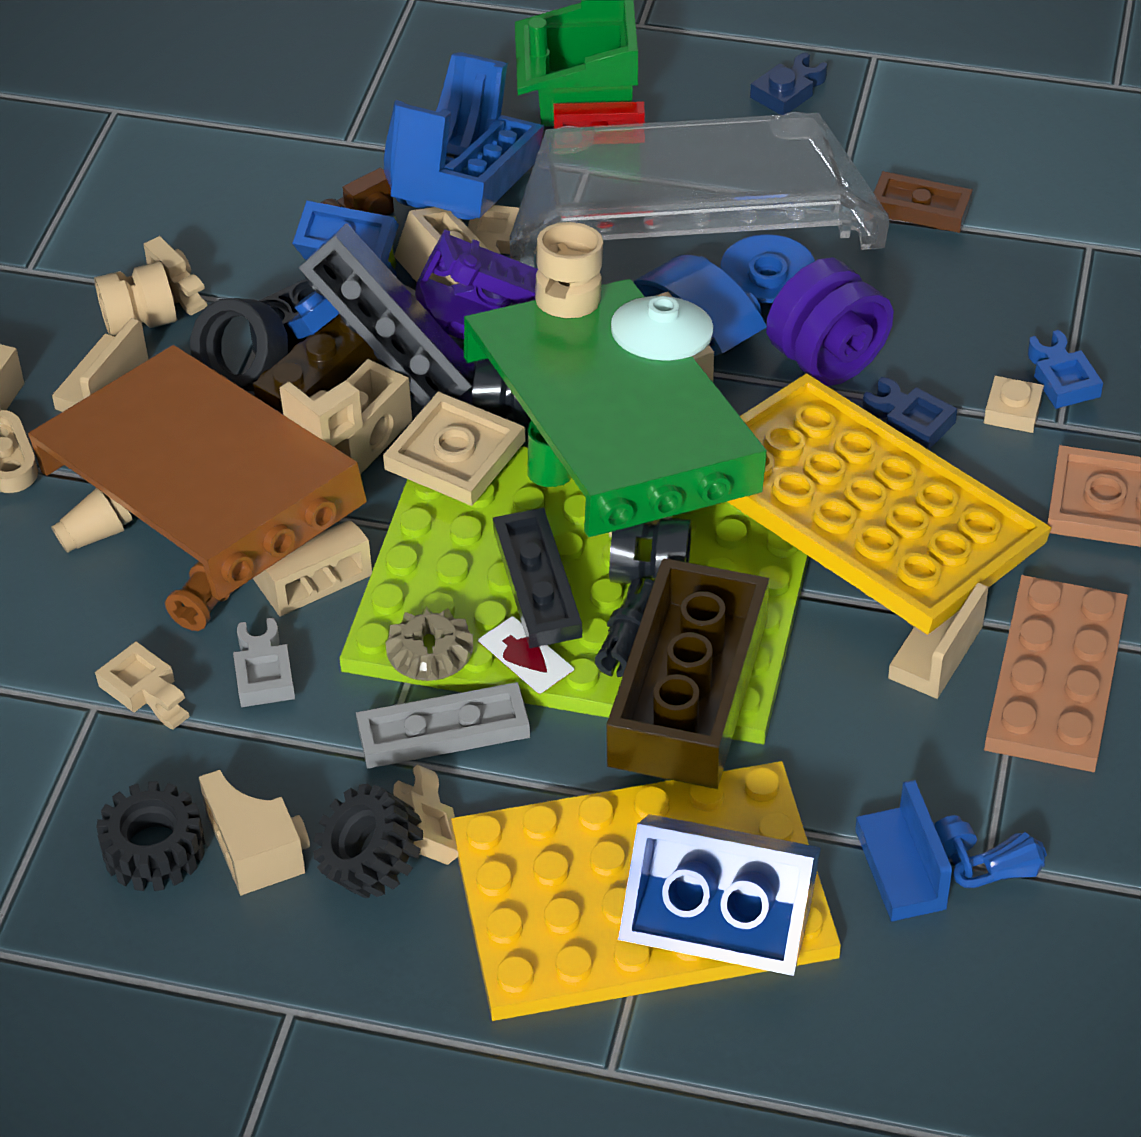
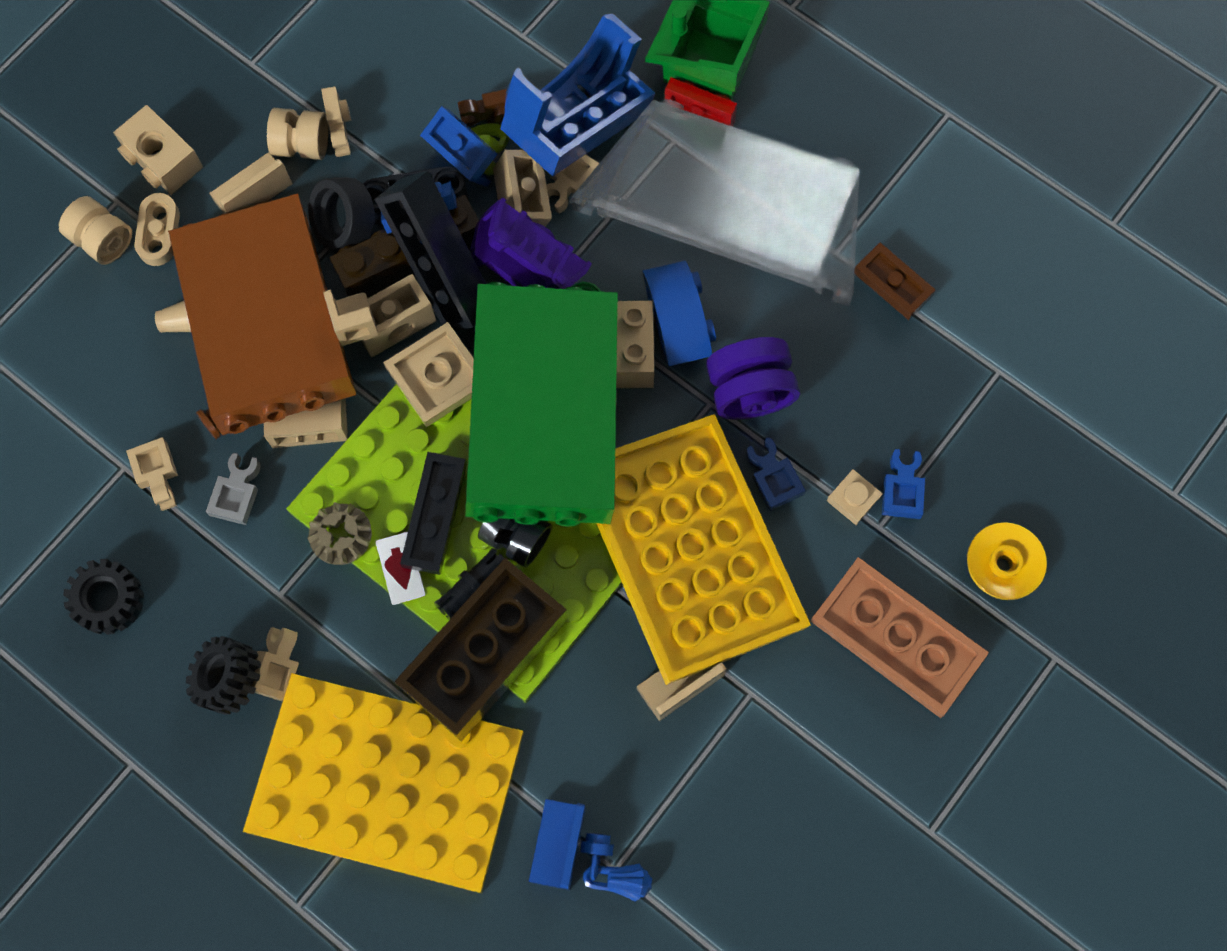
camera: 25 degrees right, 25 degrees up
(254, 834) = (158, 631): tan arch -> none
(442, 725) = (323, 595): light grey plate -> none
(568, 269) = (562, 282): tan wheel -> none
(662, 328) = (606, 369): light aqua dish -> none
(719, 893) = (413, 829): blue slope -> none
(765, 264) = (748, 283): blue dish -> none
(787, 88) = (862, 121): dark blue plate -> none
(1056, 673) = (748, 742): nougat plate -> none

